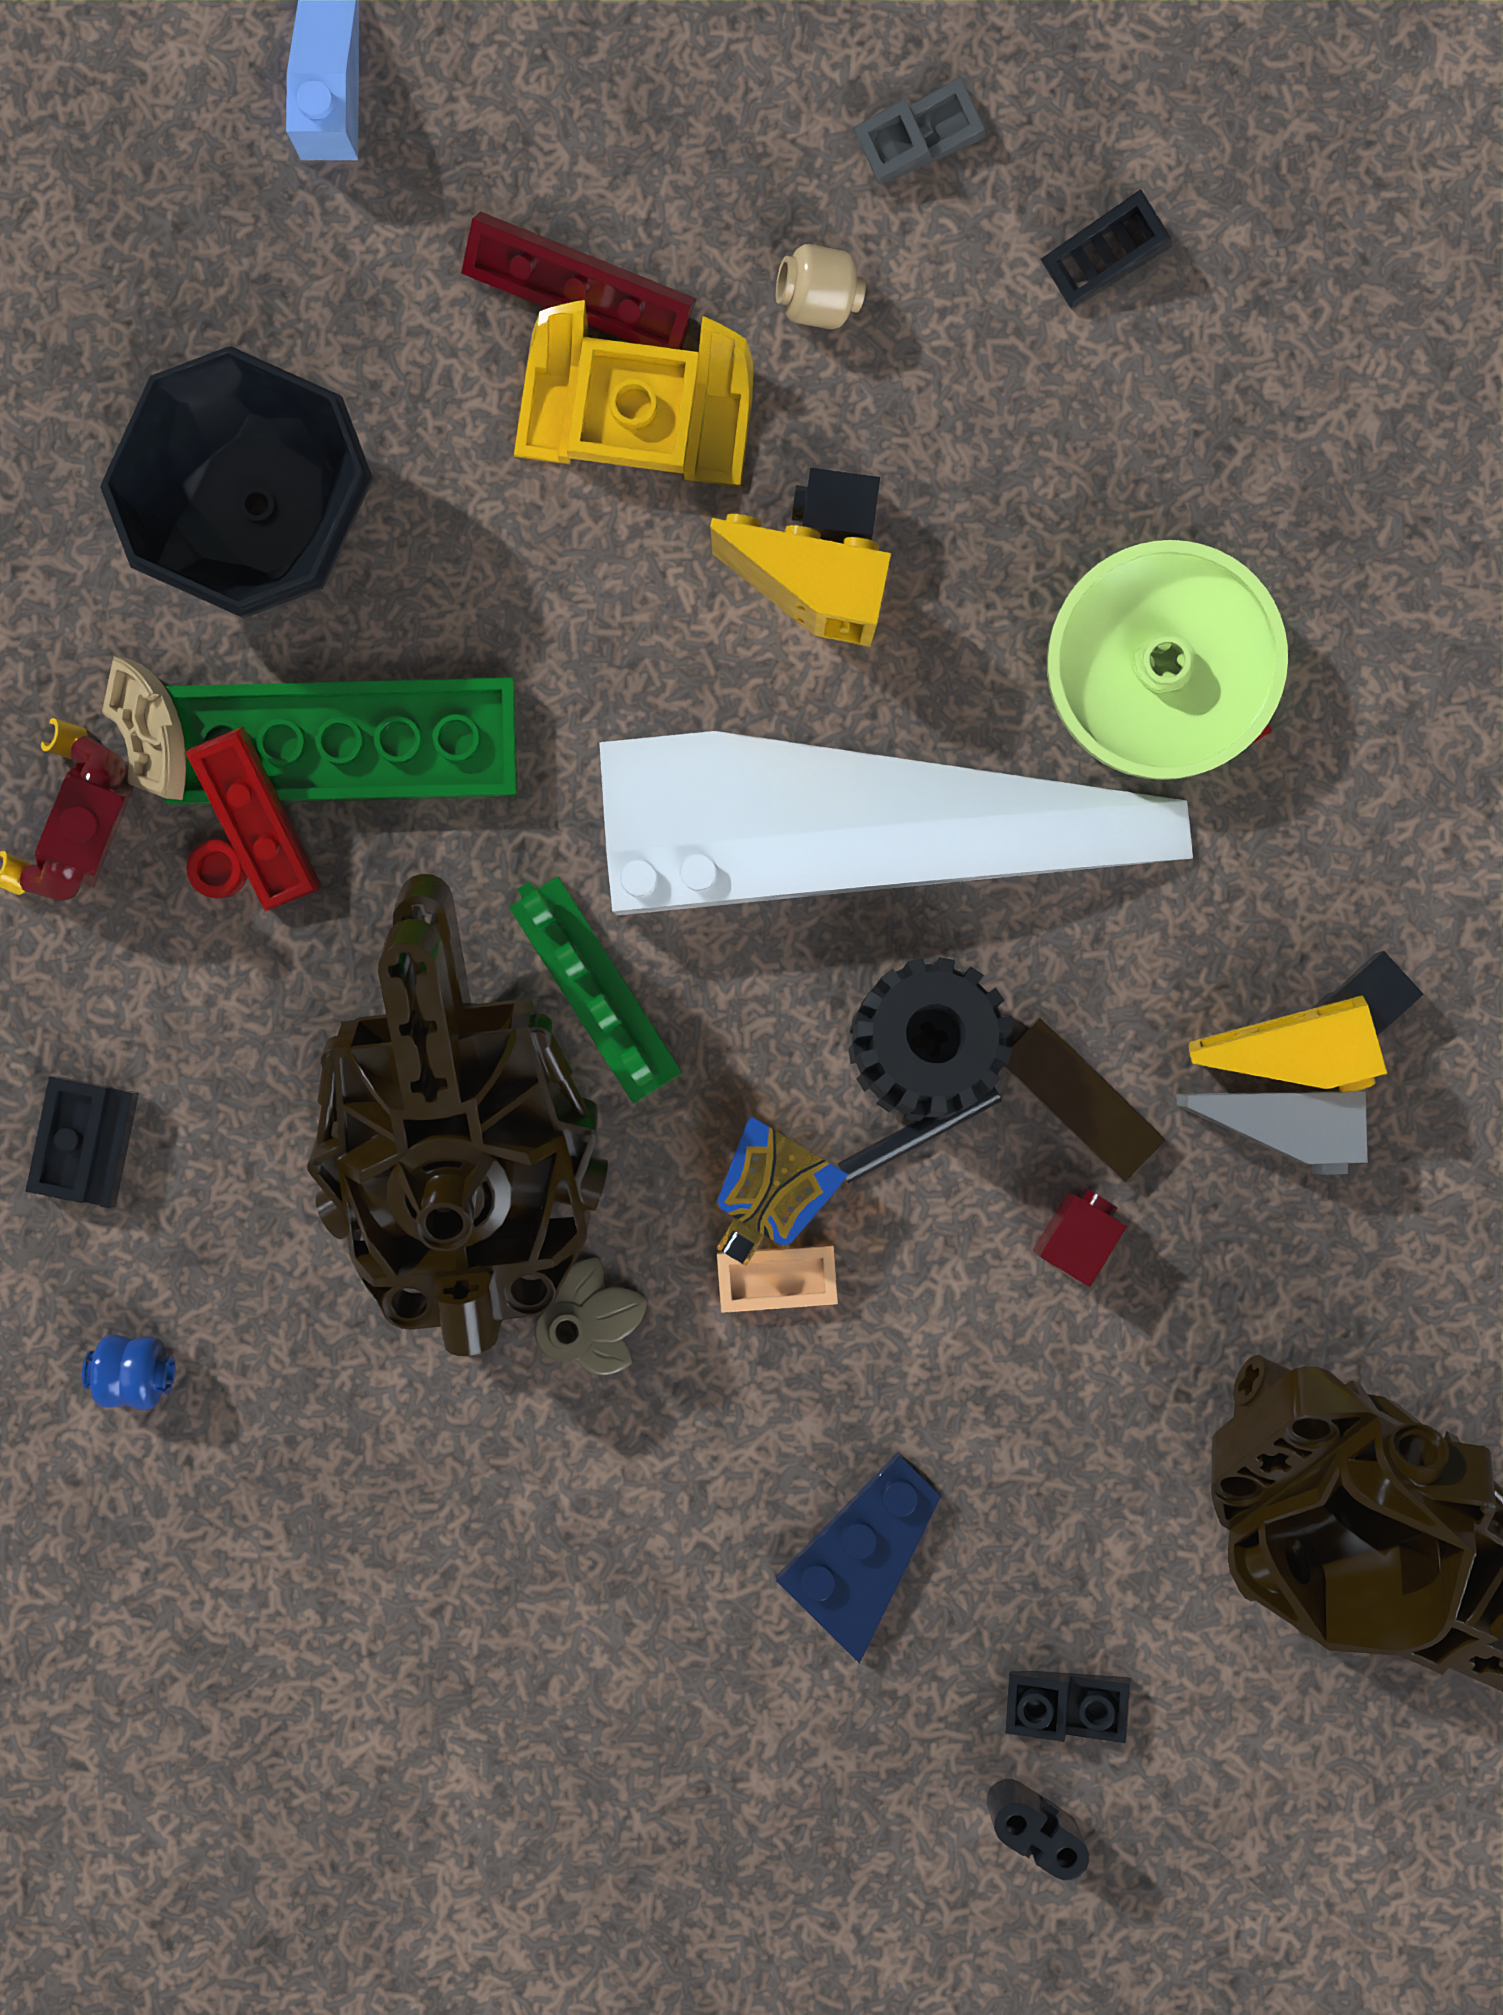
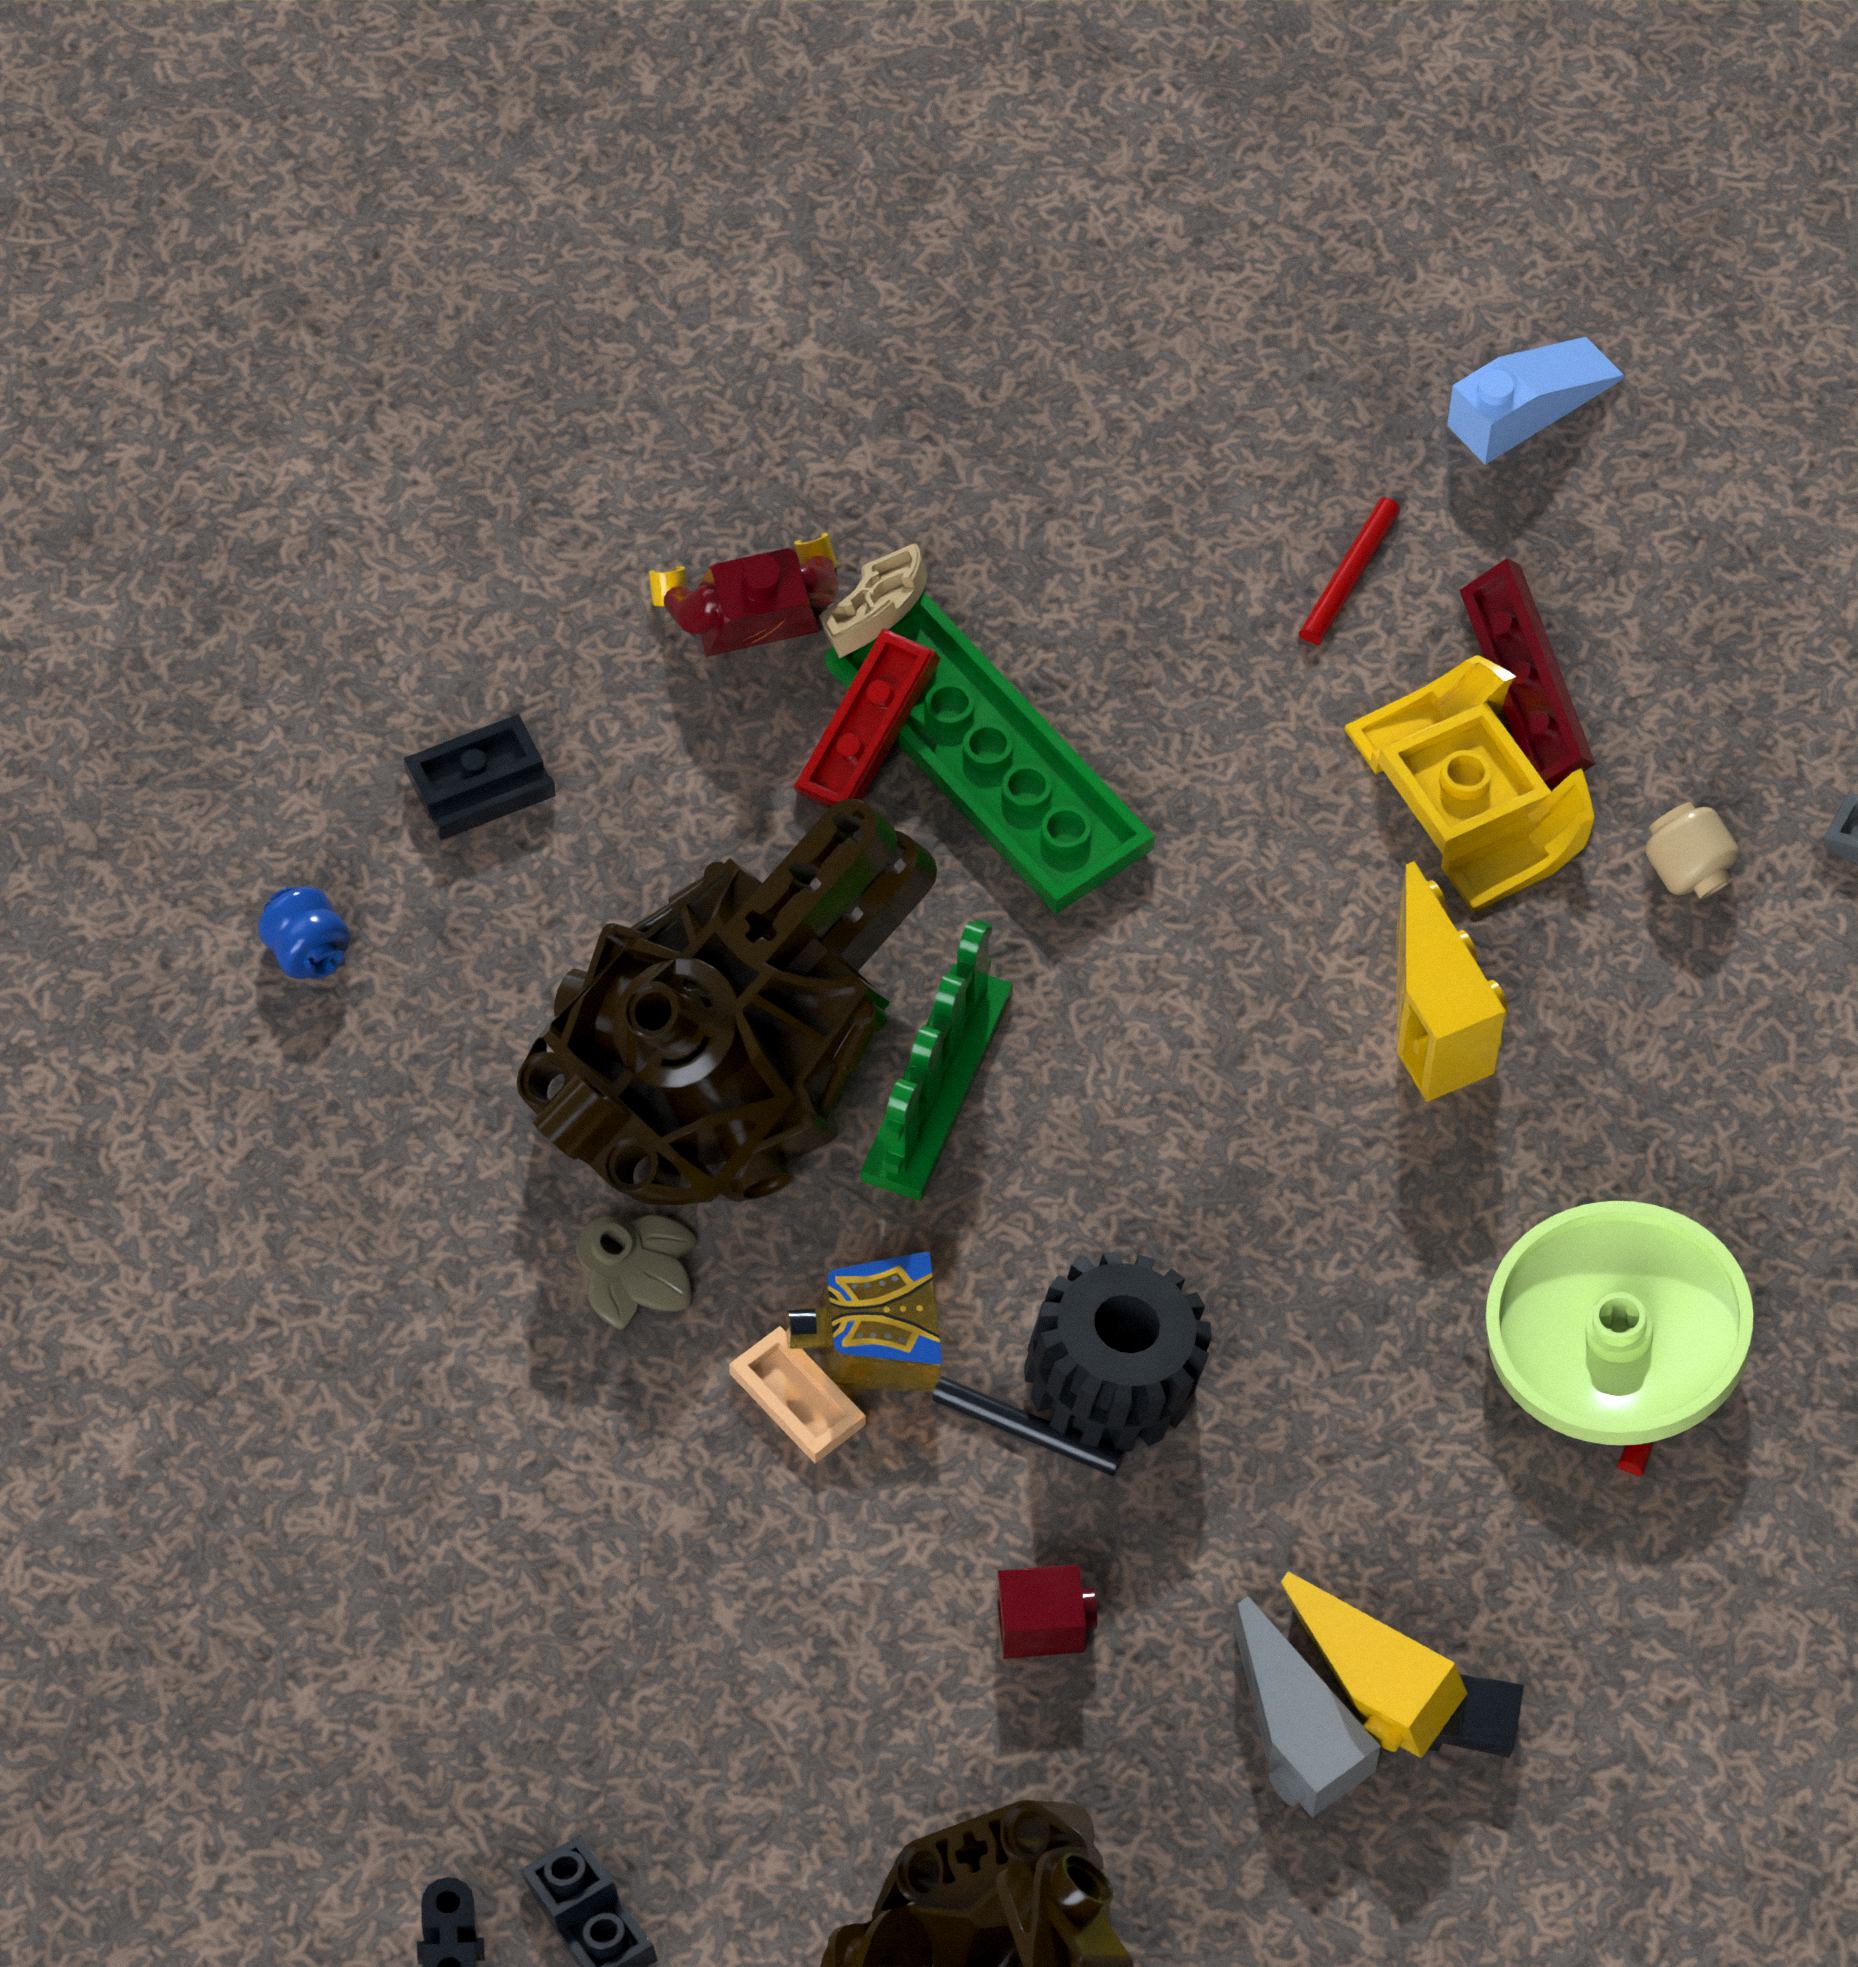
camera: 50 degrees right, 30 degrees down
(210, 446) = (1145, 492): black rock -> none
(215, 870) = (796, 731): red tile -> none
(379, 341) = (1349, 571): none -> red bar
(778, 819) = (1222, 1141): white wedge -> none
(837, 504) = (1531, 984): black brick -> none
(862, 1554) = (594, 1634): dark blue wing -> none
(1082, 1100) = (1170, 1539): dark brown tile -> none

